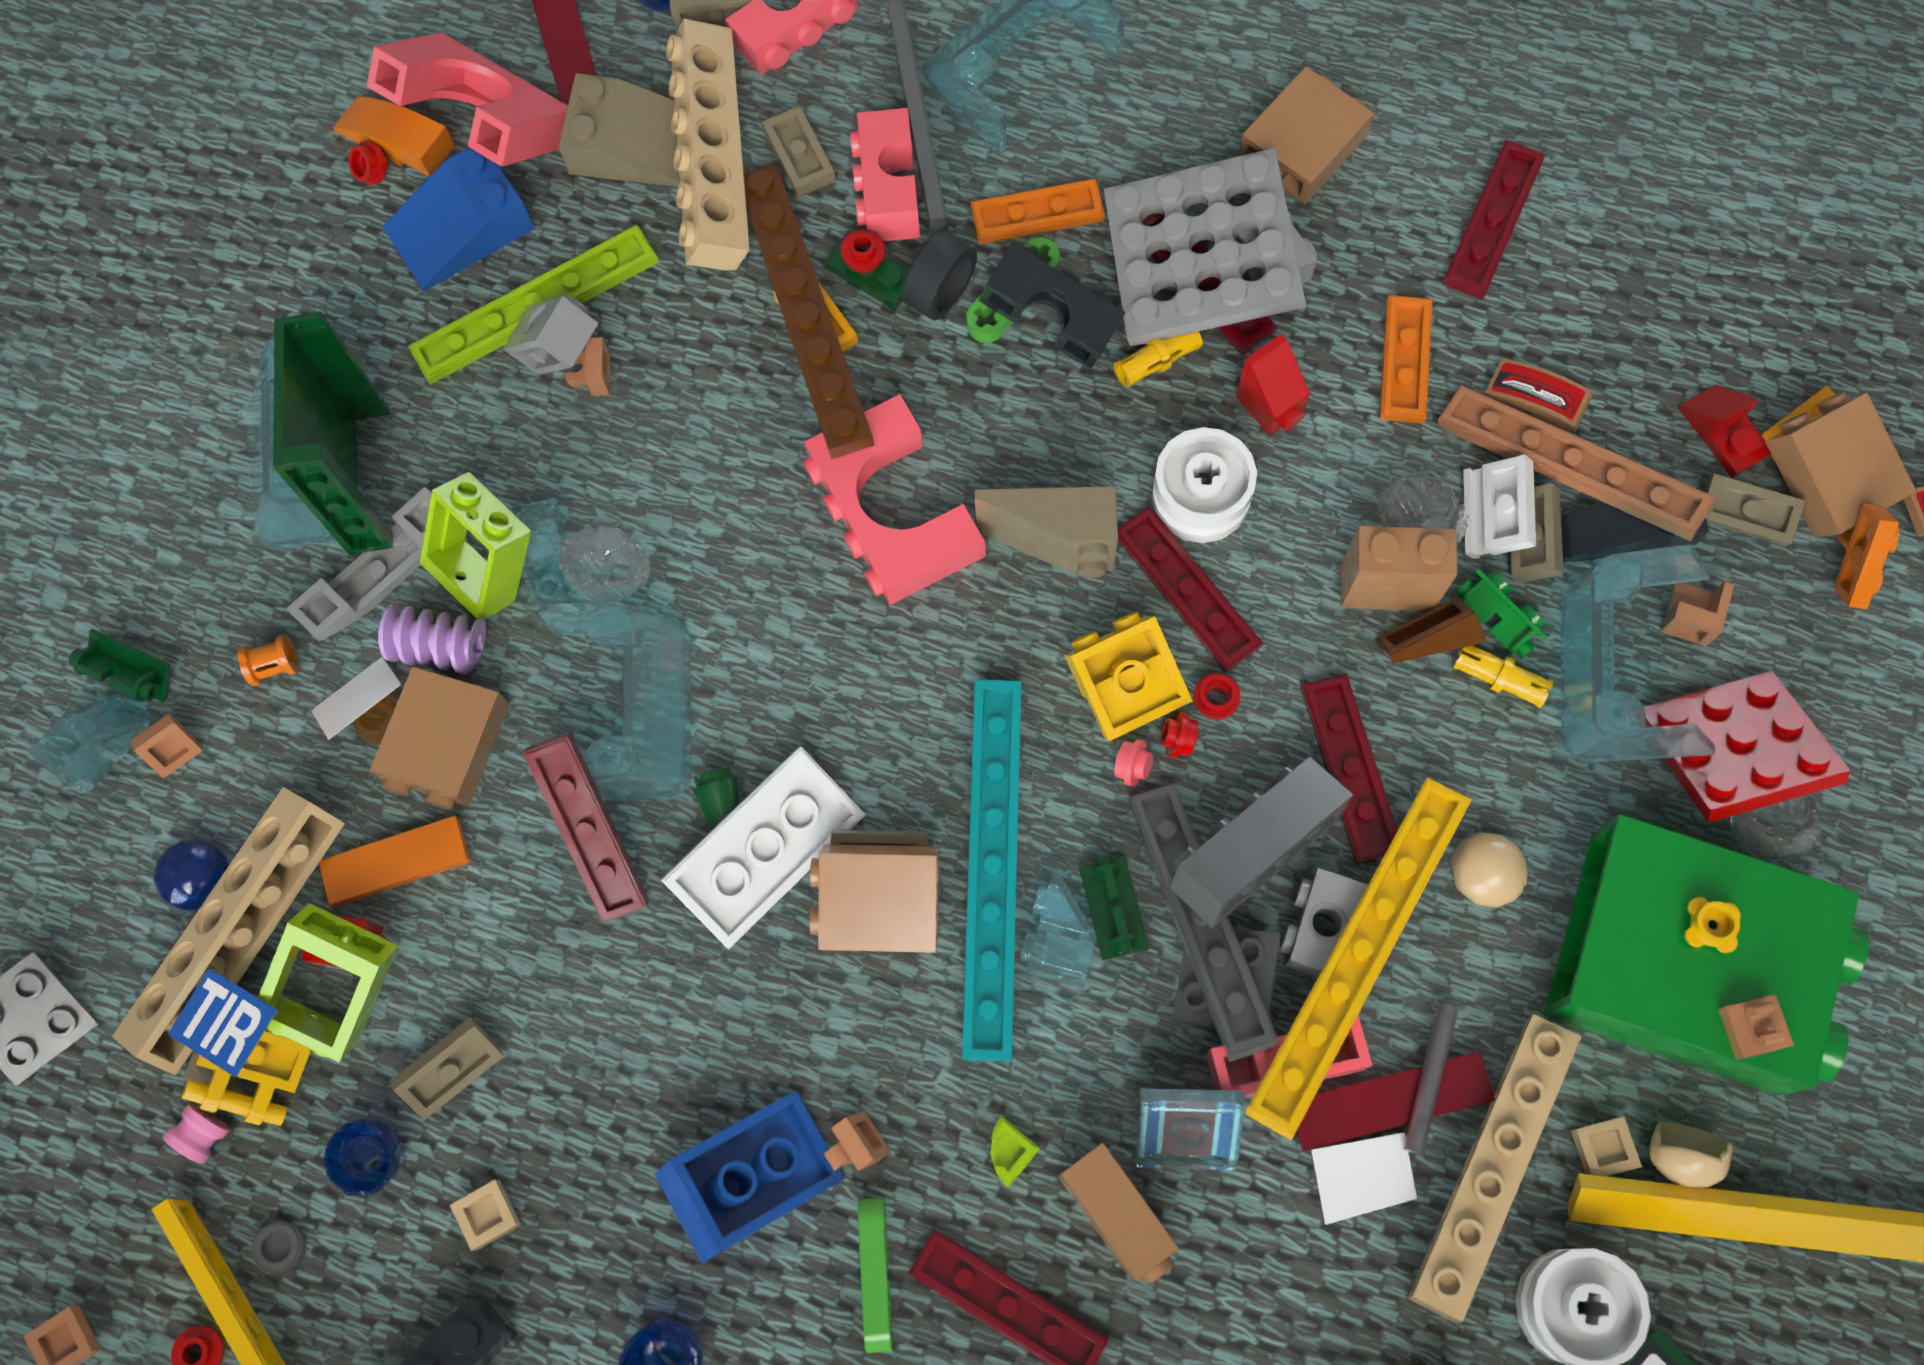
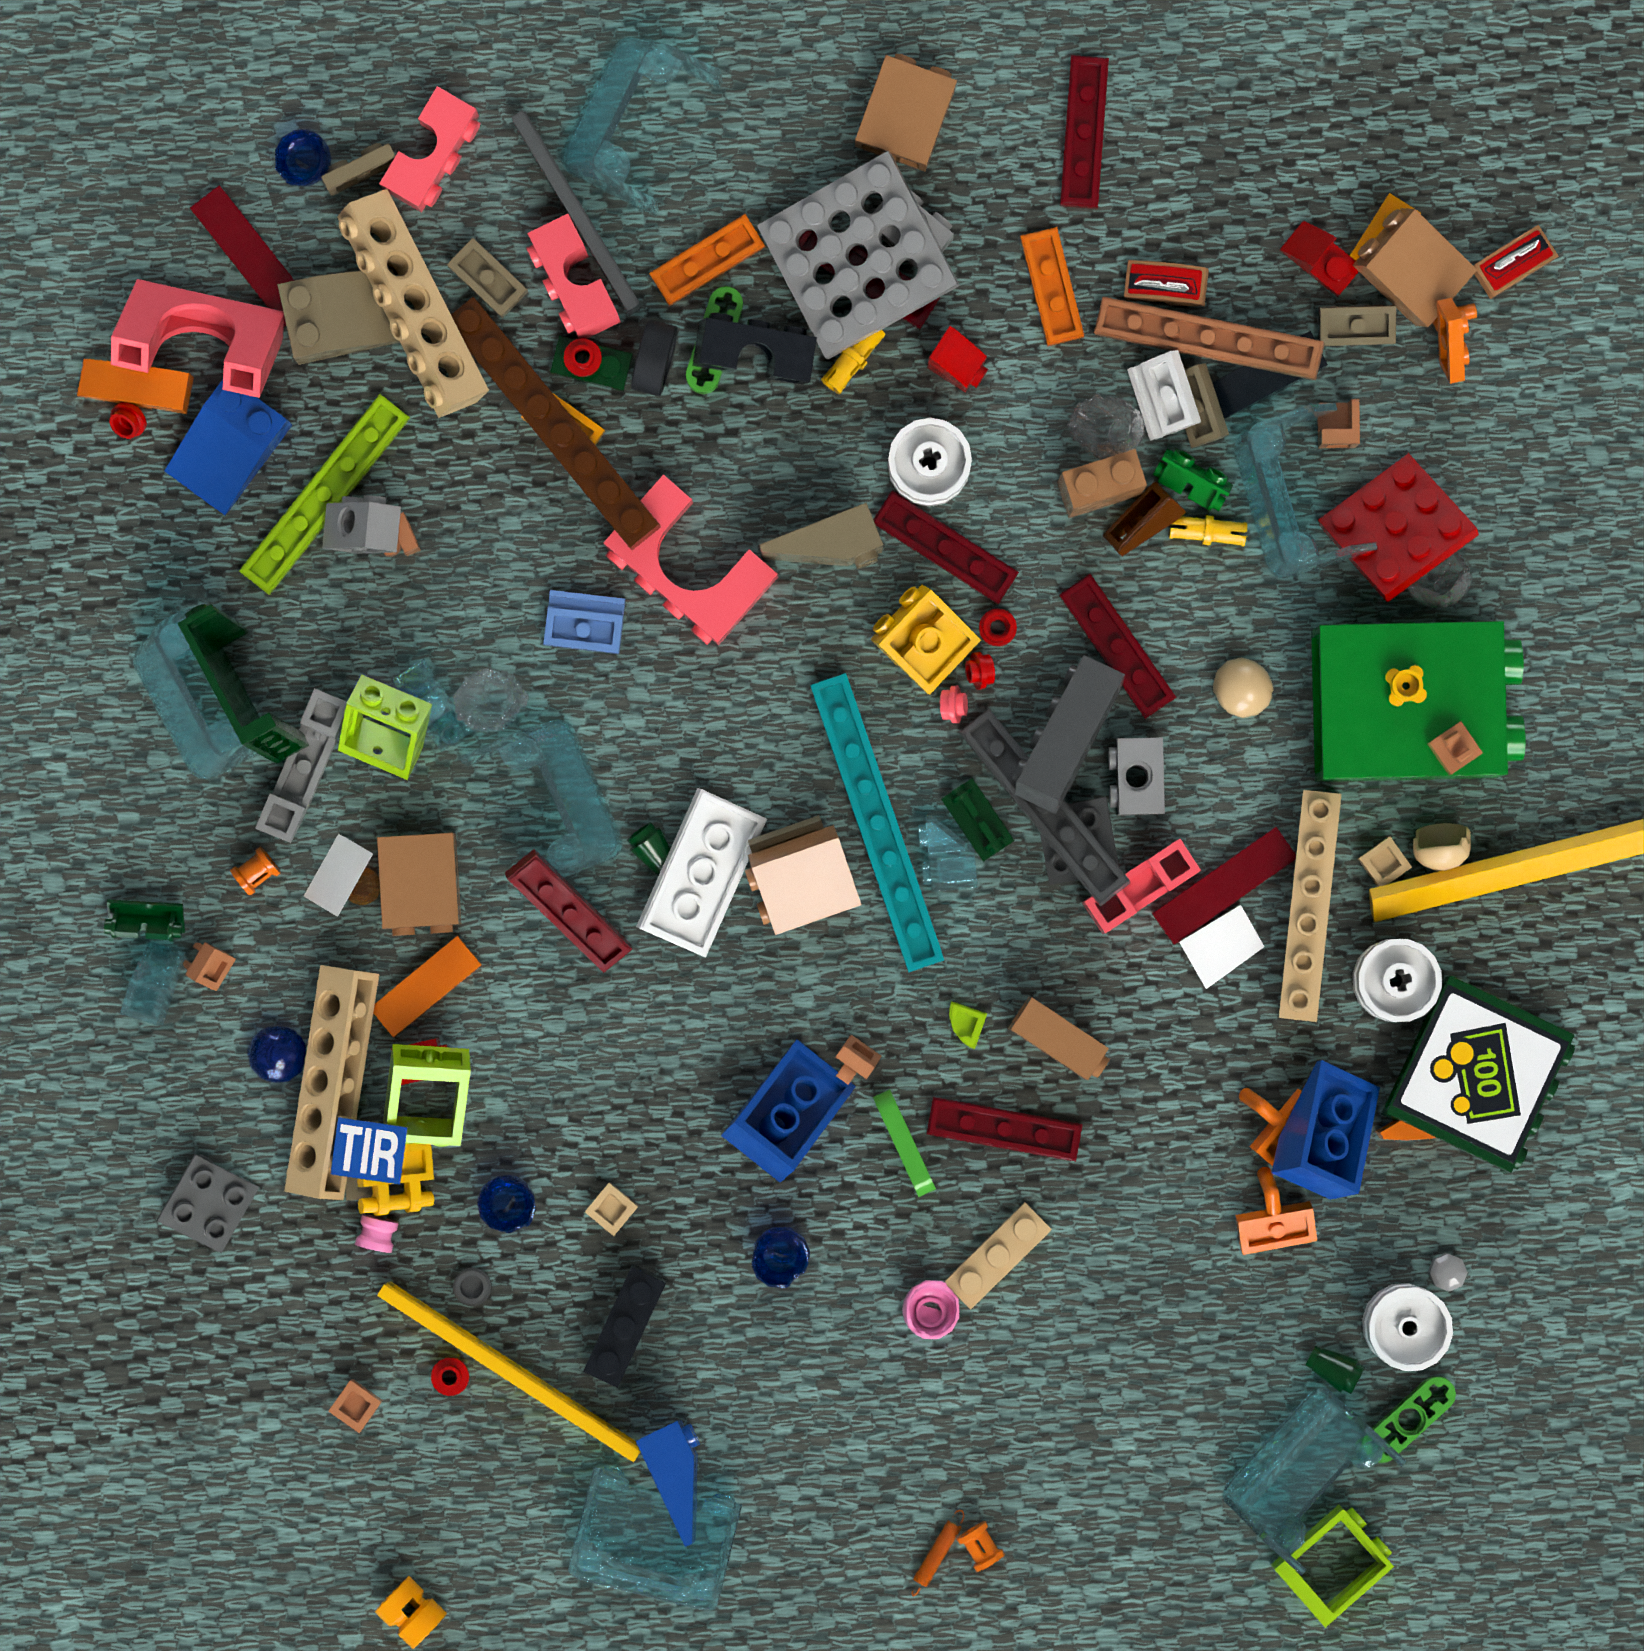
camera: 25 degrees left, 15 degrees up
(431, 643) = (378, 809): lavender piece -> none
(446, 1068) = (538, 1120): dark tan plate -> none
(750, 525) = (584, 622): none -> medium blue plate
(1189, 1129) = (1088, 962): clear light blue tile -> none
(1357, 959) = (1168, 792): yellow tile -> none
(1430, 1079) = (1247, 860): flat silver bar -> none

